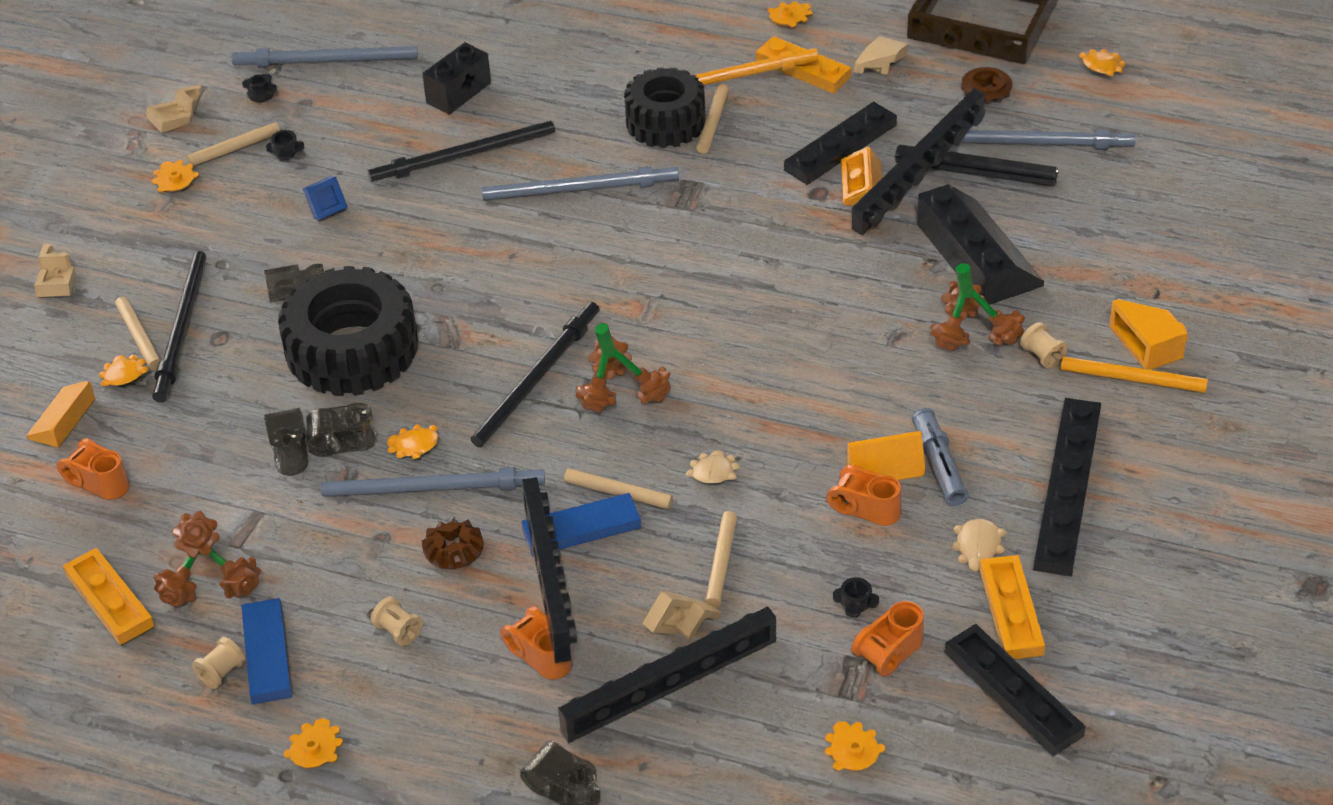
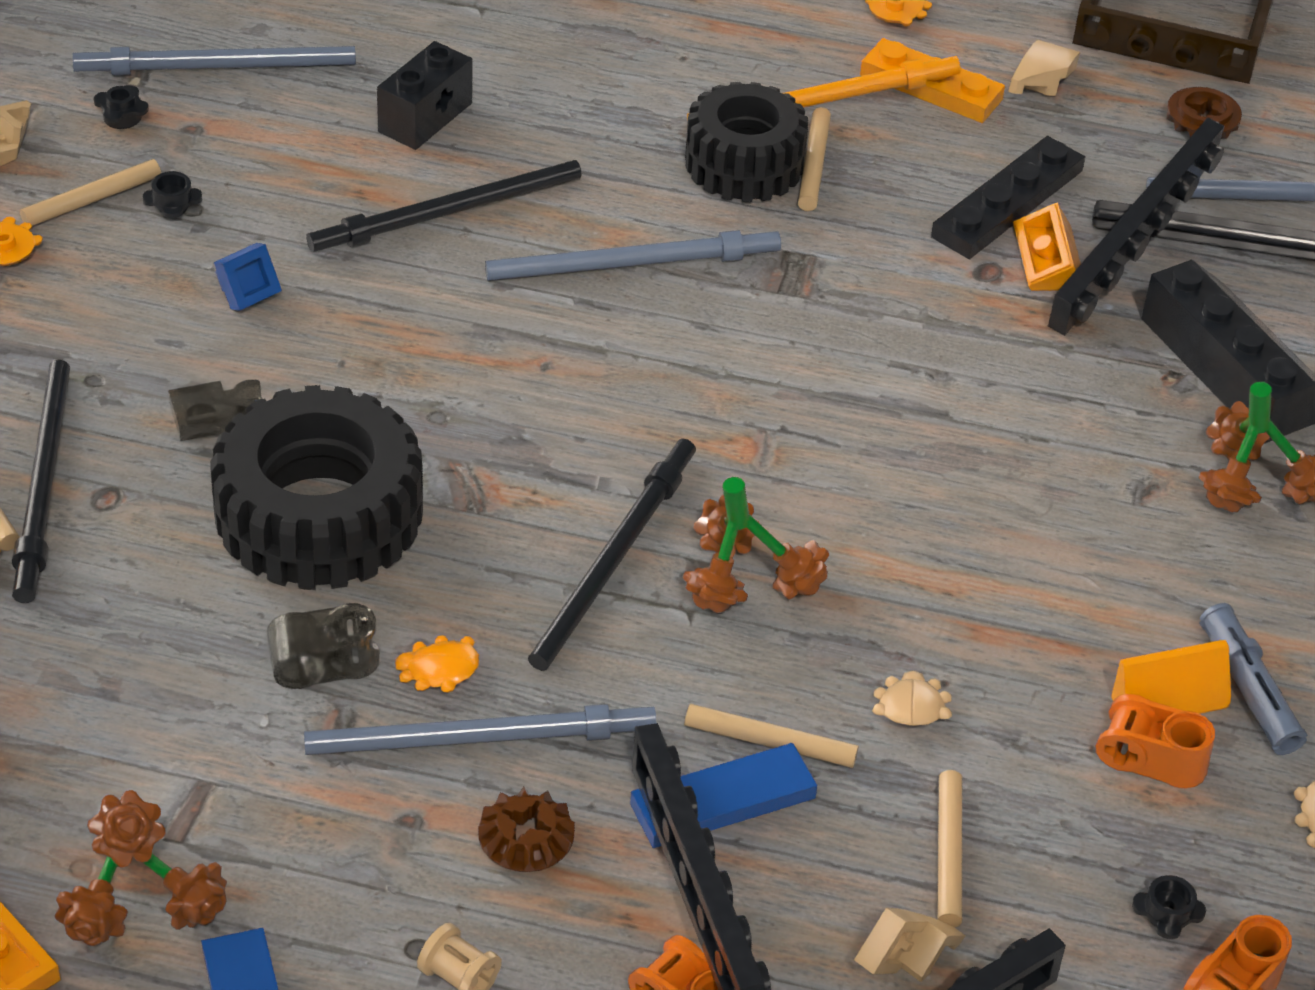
camera: 10 degrees left, 0 degrees up
(287, 439) = (240, 664): clear smoke piece -> none

